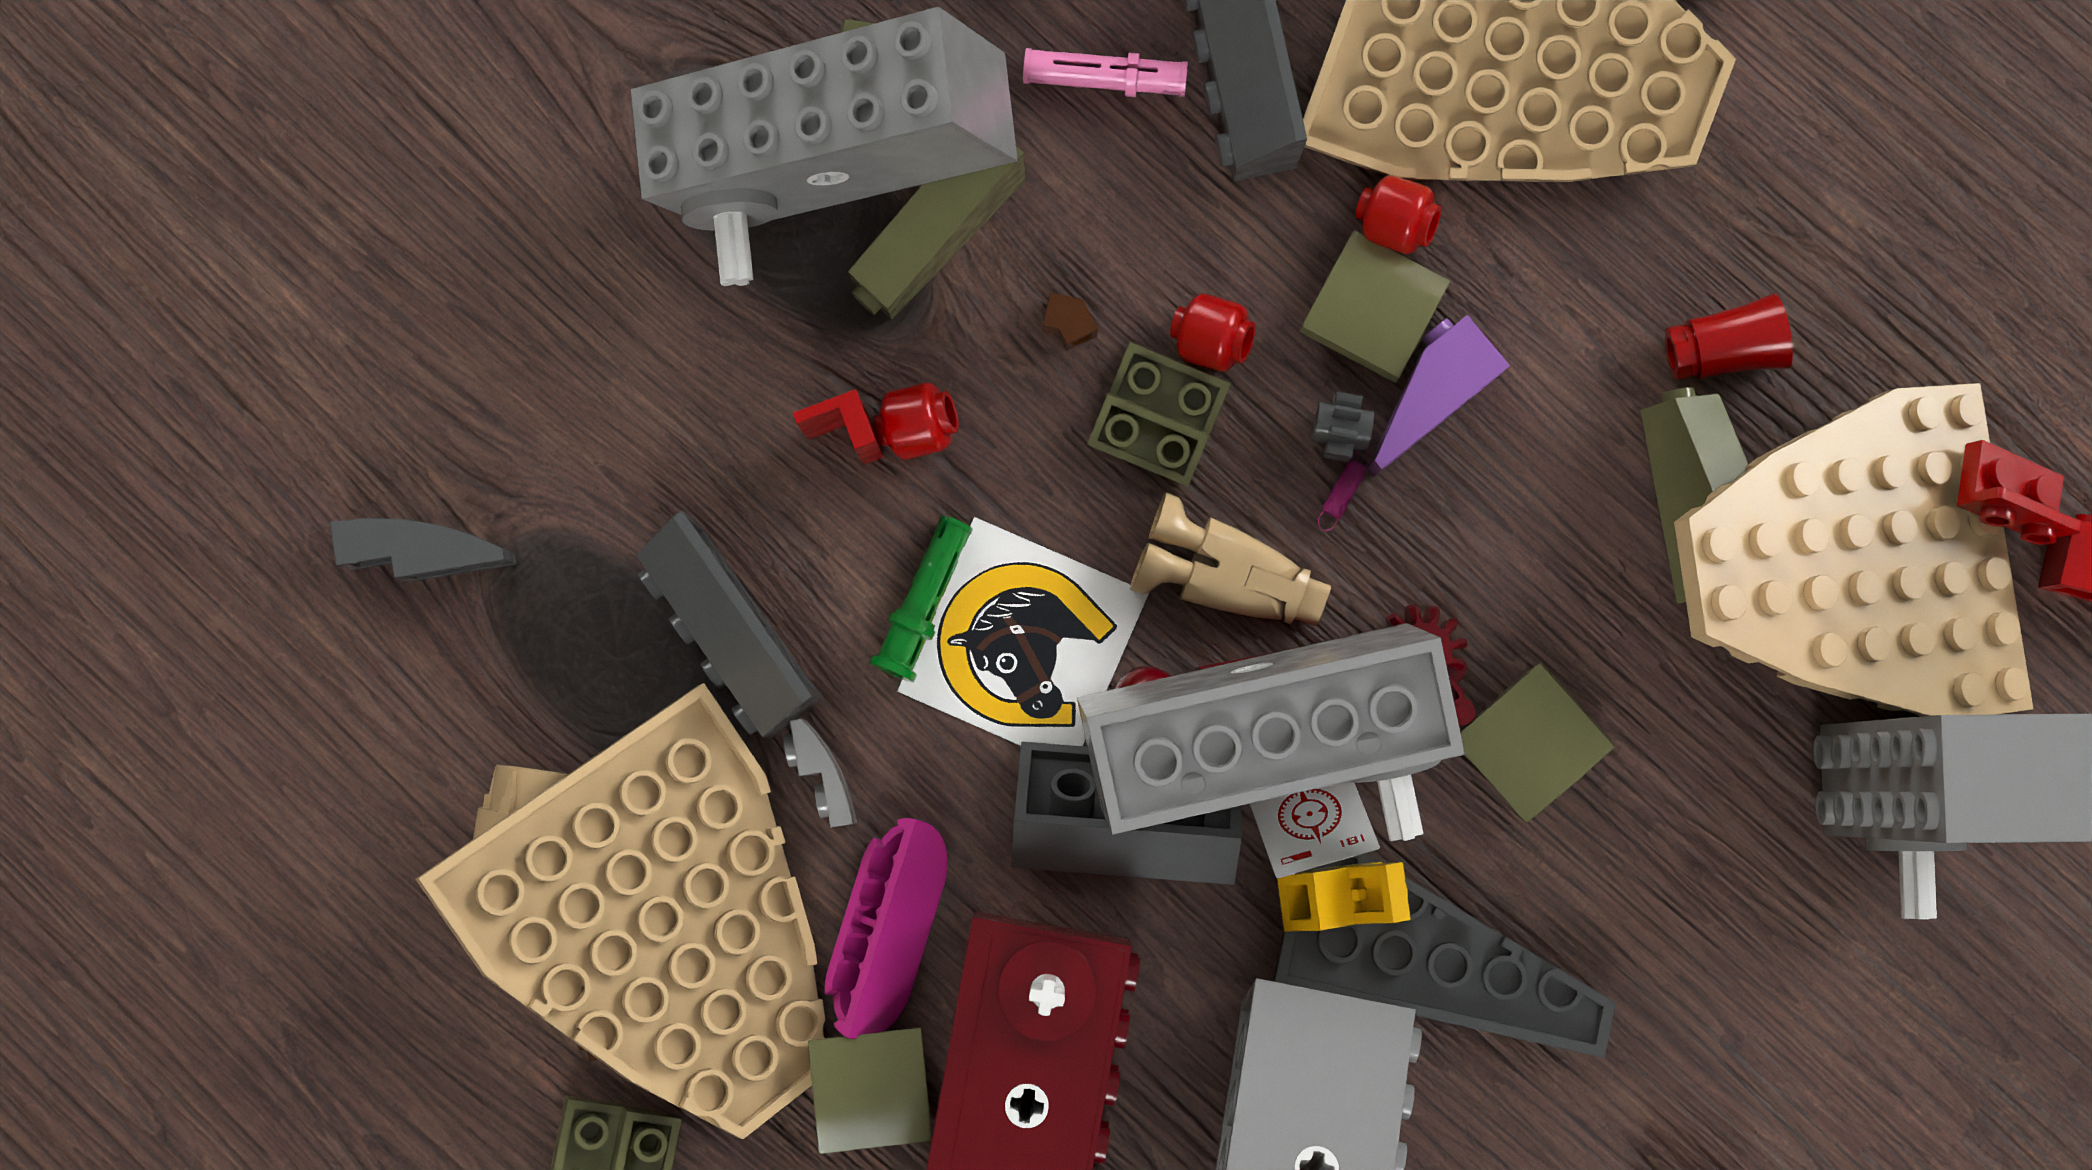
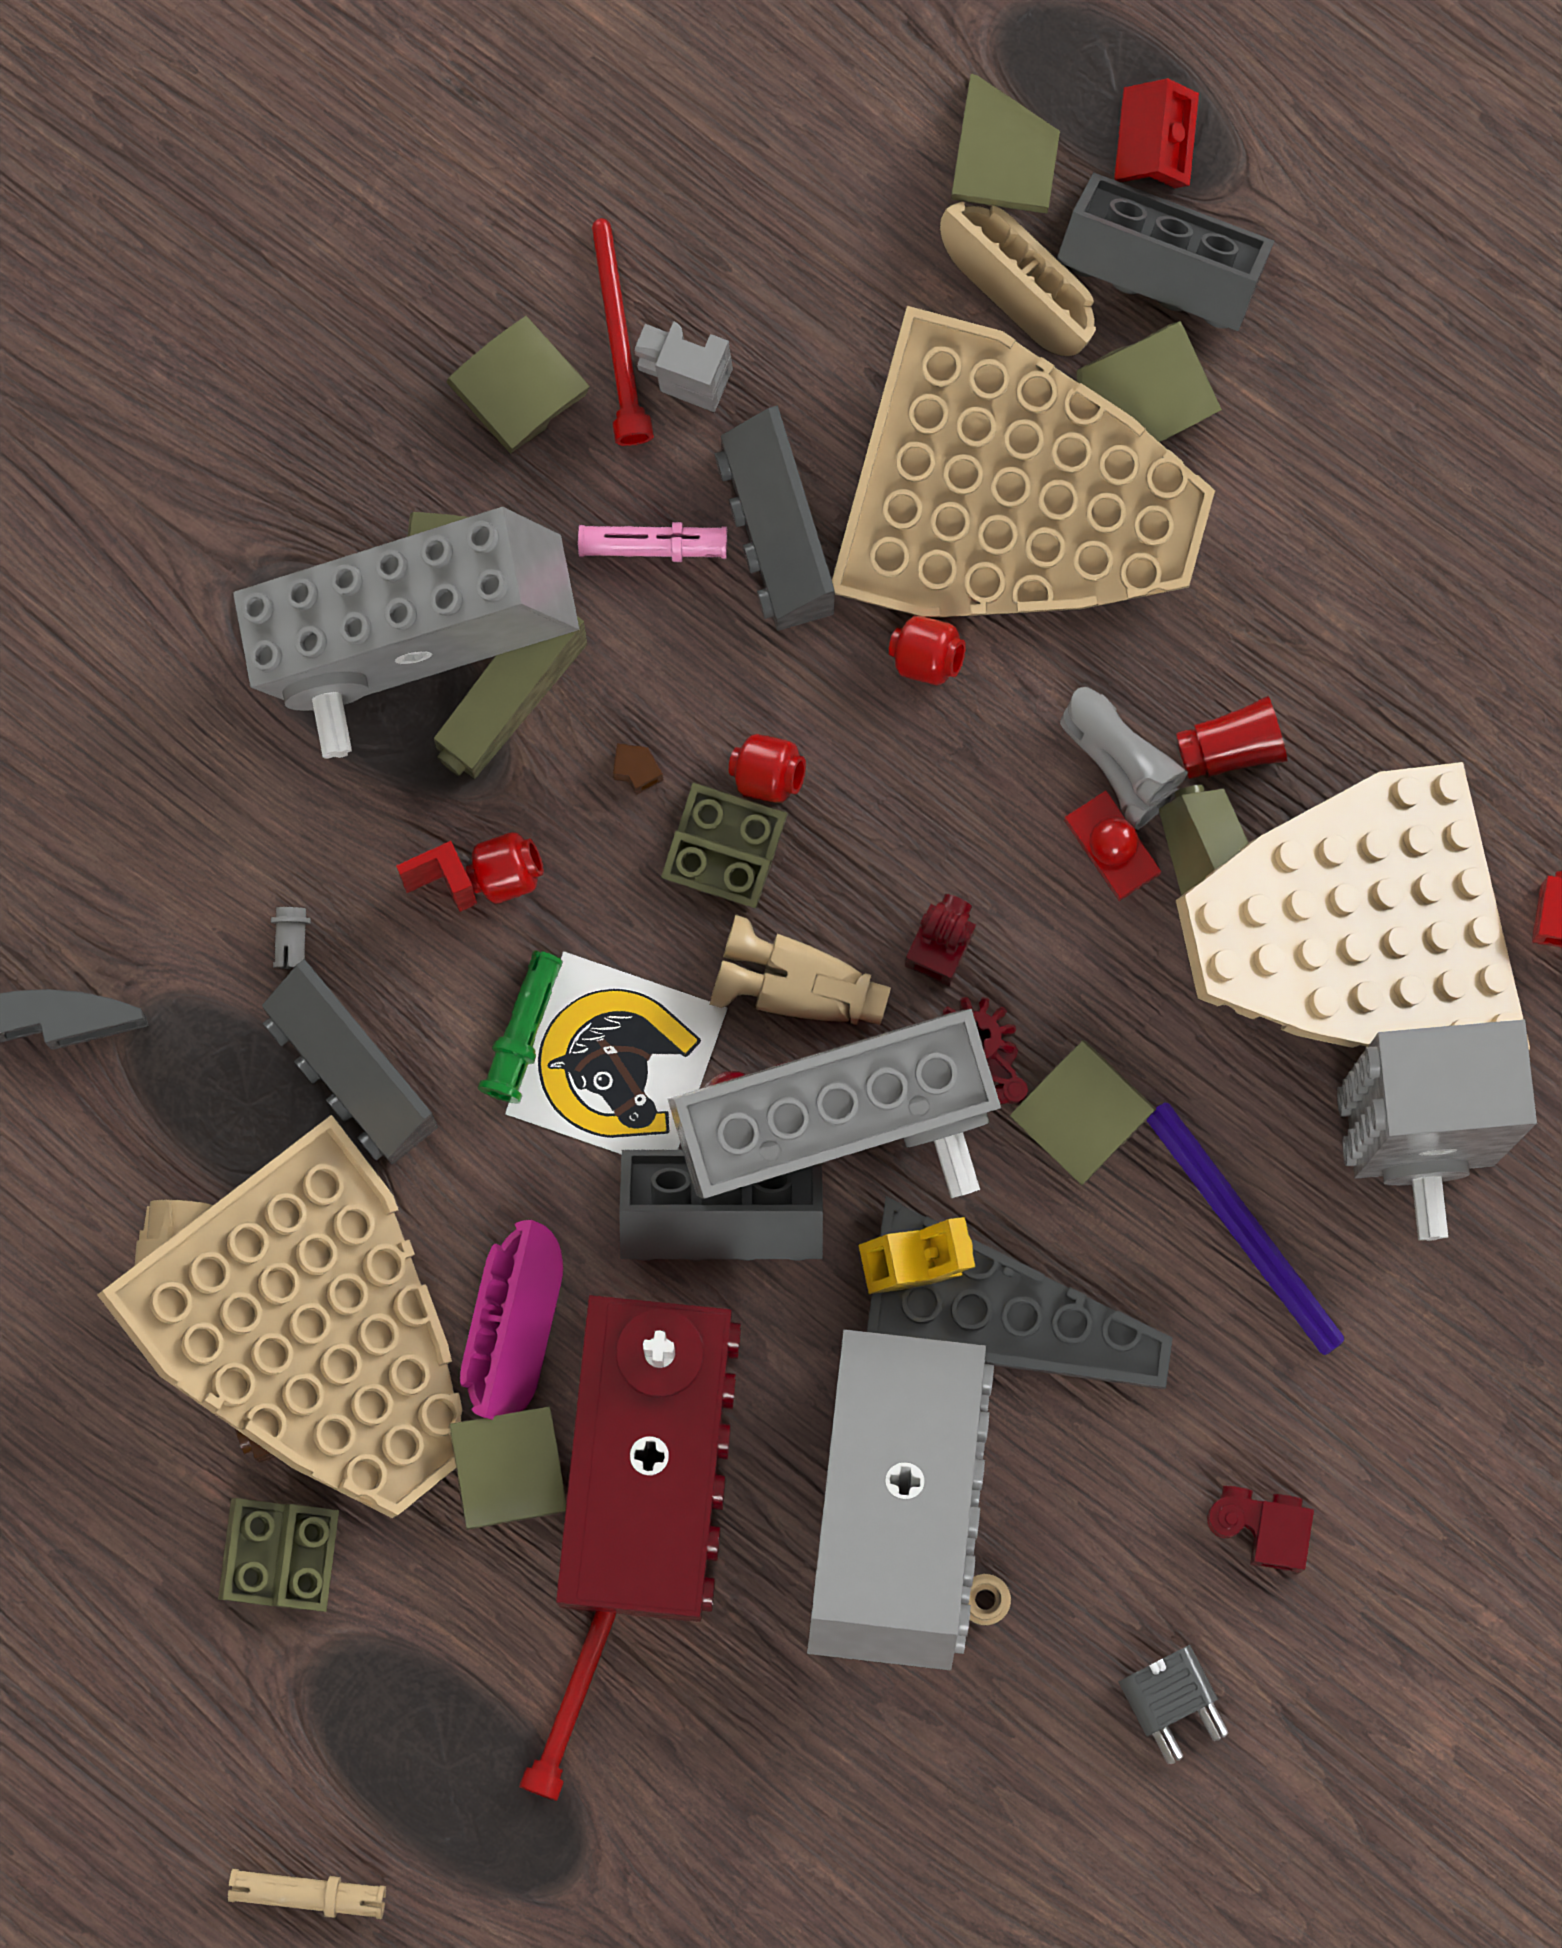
camera: 10 degrees left, 5 degrees down
(676, 479) = (289, 936): none -> light grey pin
(812, 756) = (430, 1171): light grey slope -> none
(1314, 828) = (883, 1189): white sticker -> none
(1342, 426) = (890, 843): dark grey gear -> none
(1344, 490) = (897, 901): dark pink piece -> none
(1374, 306) = (911, 734): olive slope -> none
(1393, 538) = (942, 940): none -> dark red brick
(1442, 380) = (979, 795): medium lavender slope -> none
(1585, 446) = (1112, 845): none -> red tile
(1617, 360) = (1135, 768): none -> light grey piece
(1703, 886) = (1245, 1229): none -> dark purple axle
(2013, 494) = (1493, 857): red bracket -> none

